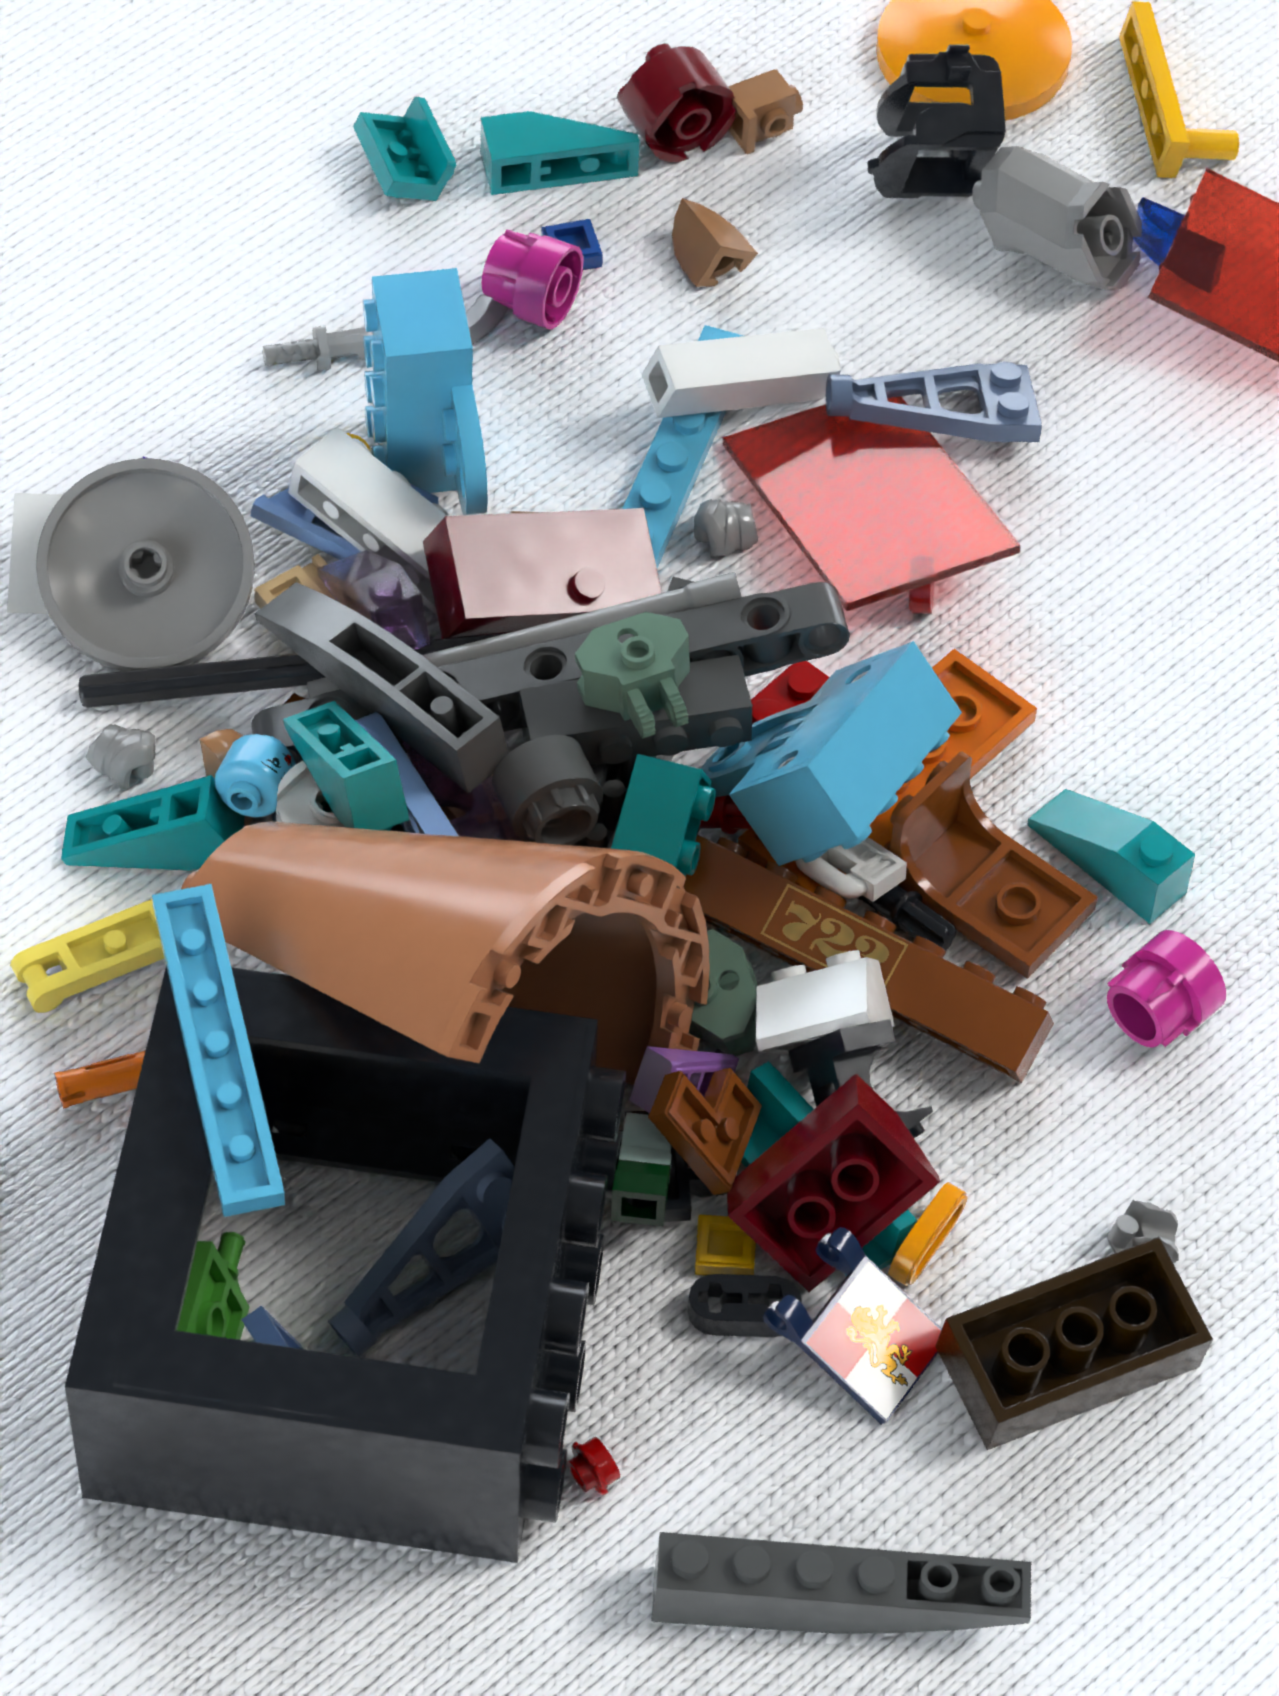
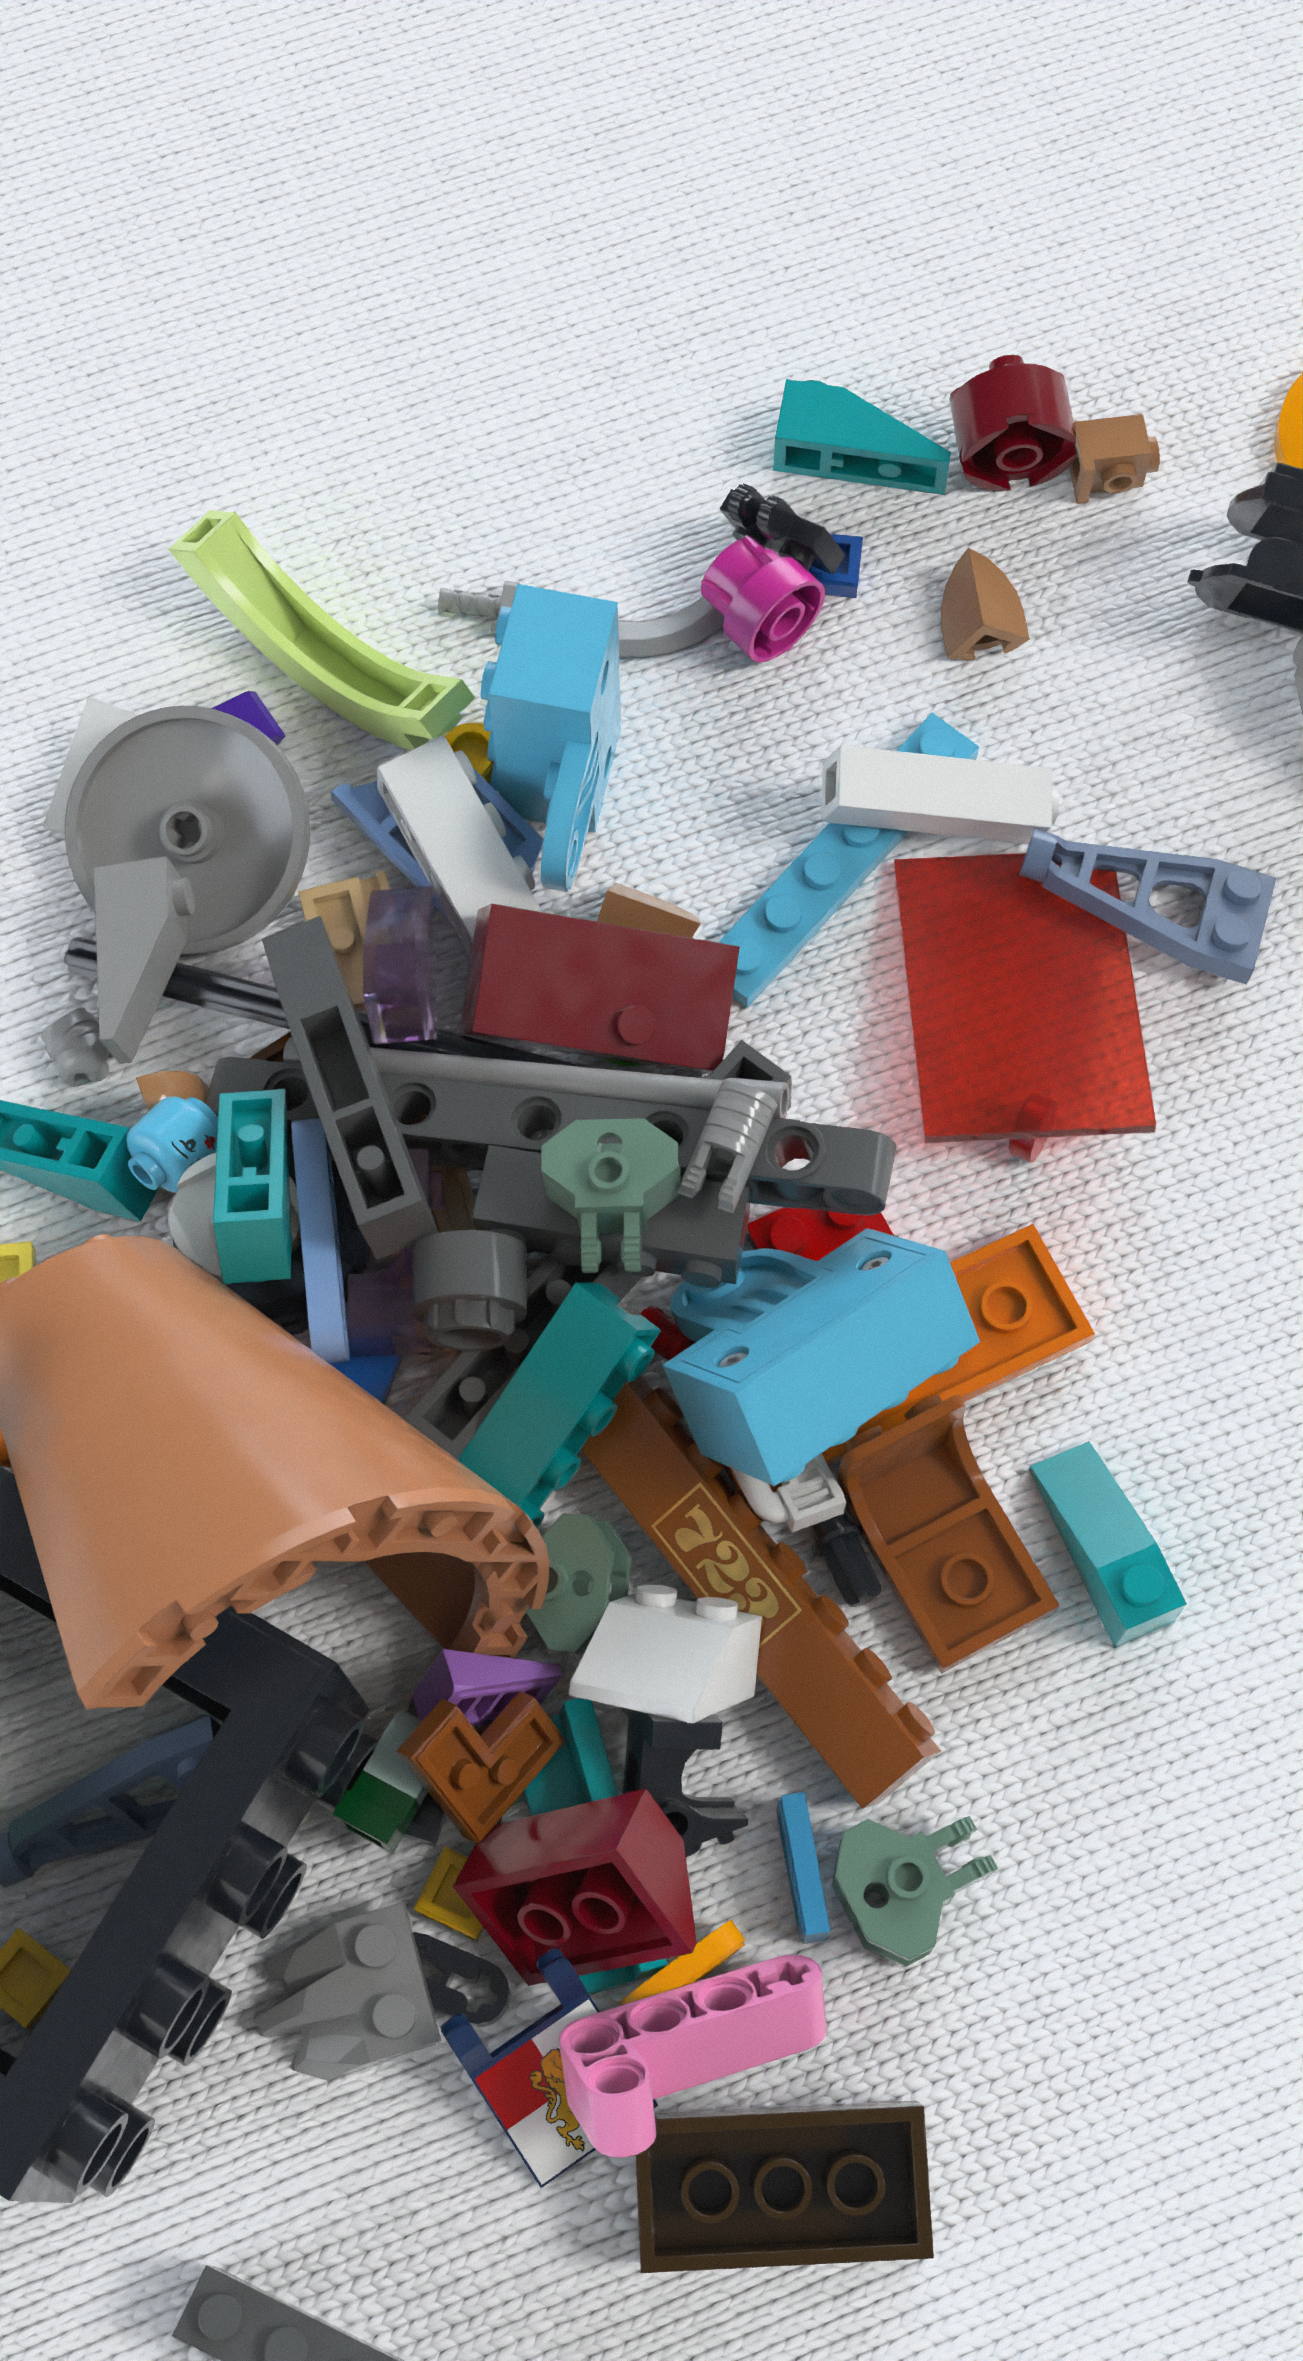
camera: 25 degrees right, 15 degrees up
(148, 647) = (138, 944): none -> light grey slope
(181, 416) = (309, 644): none -> yellowish green arch
(407, 151) = (694, 394): teal bracket -> none
(524, 217) = (780, 529): none -> black hinge
(593, 1466) = (193, 2124): red plate -> none
(676, 1335) = (353, 1995): none -> light grey plate
(715, 613) = (731, 1136): none -> light grey hinge
(725, 526) = (846, 976): light grey arm -> none
(928, 1283) = (682, 2040): none -> bright pink beam
(987, 1135) = (802, 1868): none -> dark azure tile
(1070, 1116) = (909, 1882): none -> sand green hinge
(1142, 1223) = (928, 2065): light grey arm -> none
(1165, 990) = (1080, 1764): dark pink piece -> none

